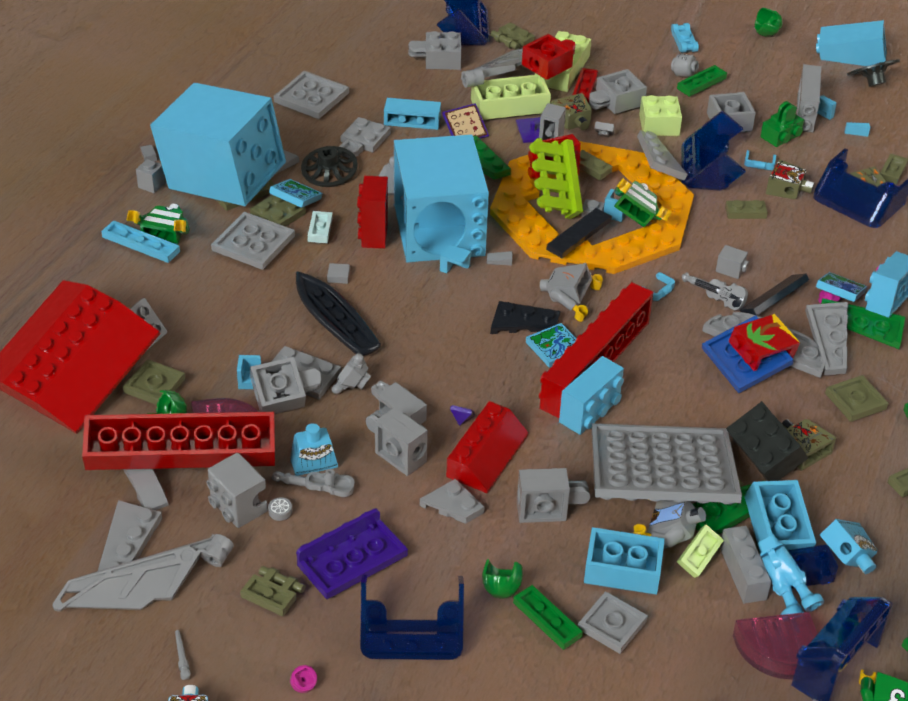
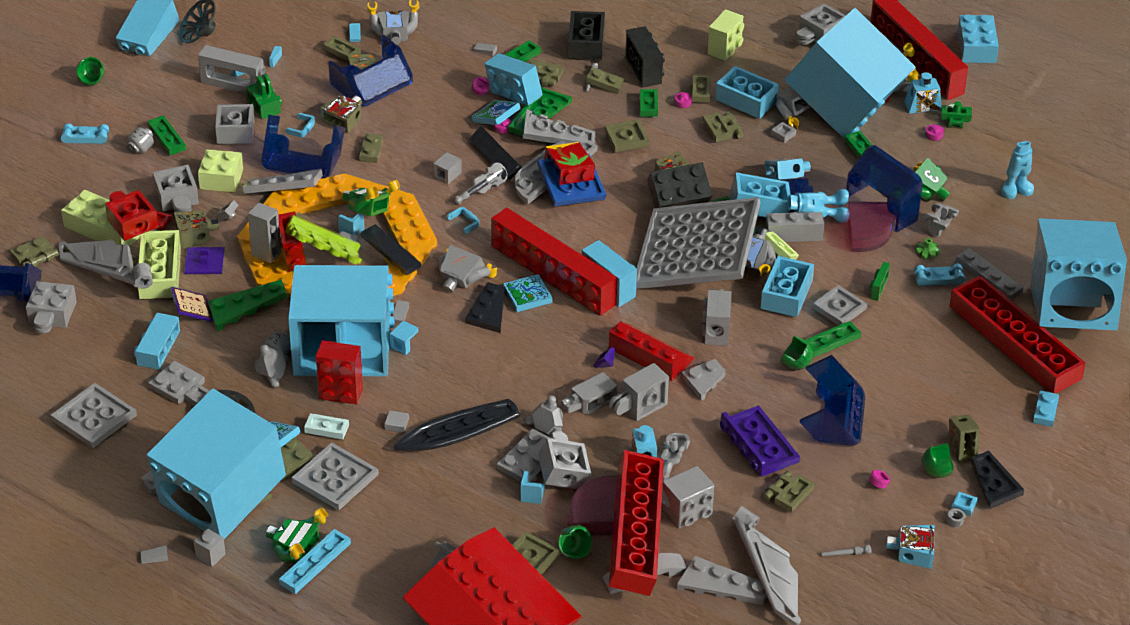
camera: 80 degrees left, 0 degrees up
(672, 662) = (881, 278): none -> green plate

